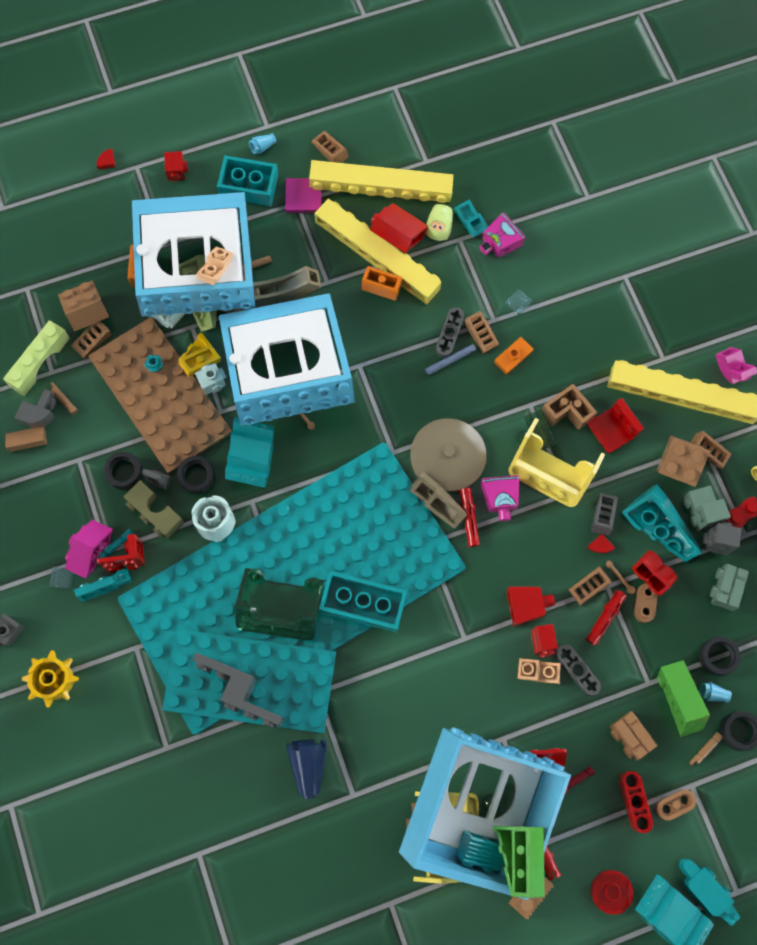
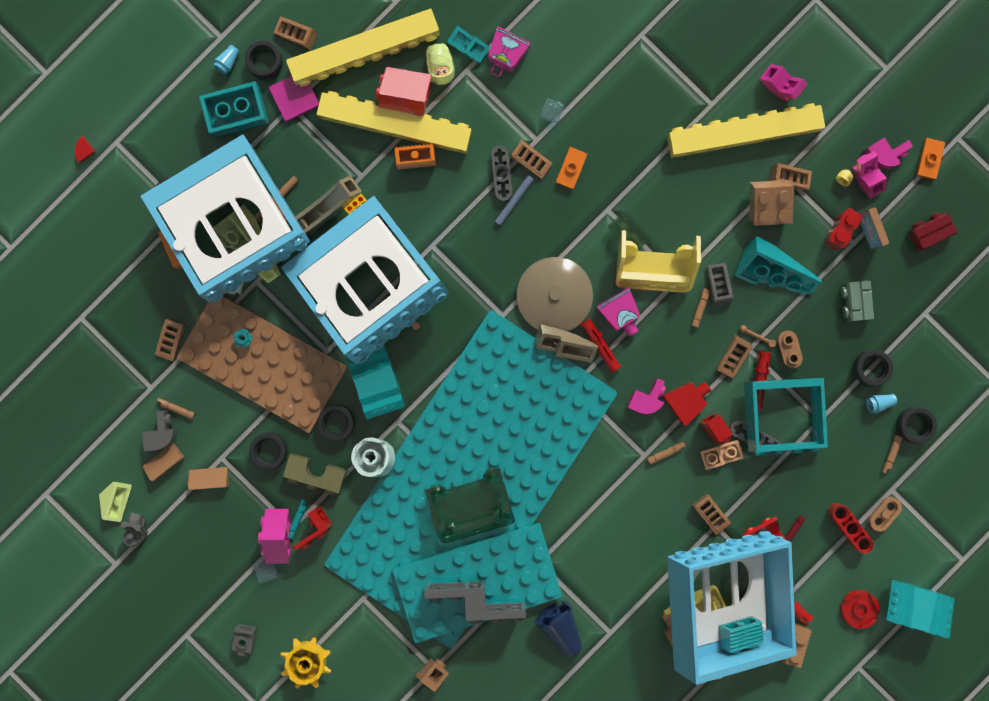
camera: 20 degrees left, 15 degrees up
(24, 371) = (127, 398): yellowish green arch -> none
(57, 471) = (208, 478): none -> medium nougat slope
(83, 305) = (146, 314): medium nougat brick -> none
(103, 585) = (307, 560): teal hinge -> none
(157, 478) = (303, 442): dark grey slope -> none
(160, 757) = (434, 679): none -> medium nougat brick
(175, 166) = (155, 126): red brick -> none
(198, 355) = (279, 310): yellow wing -> none
(211, 378) = (296, 327): light aqua brick -> none
(215, 266) = (257, 229): light nougat slope -> none
(293, 144) = (255, 47): none -> black tyre
(363, 601) = (543, 470): teal brick -> none
(485, 644) = (666, 453): none -> medium nougat wheel
(488, 589) = (647, 403): none -> dark pink brick
(505, 705) = (700, 503): none -> medium nougat slope
(523, 859) = (780, 627): bright green wedge -> none
(570, 404) = (646, 195): medium nougat brick -> none
(577, 527) = (700, 308): none -> medium nougat wheel
(601, 545) = (728, 315): red tile -> none
(615, 426) = (695, 197): red bracket -> none
(632, 736) = (826, 473): medium nougat brick -> none
(650, 669) = (818, 413): none -> teal window
(655, 573) = (787, 320): red brick -> none
(683, 698) = (855, 420): bright green wedge -> none
(705, 509) = (809, 239): sand green brick -> none
(707, 892) = (940, 574): teal hinge -> none
(722, 539) = (835, 261): dark grey brick -> none

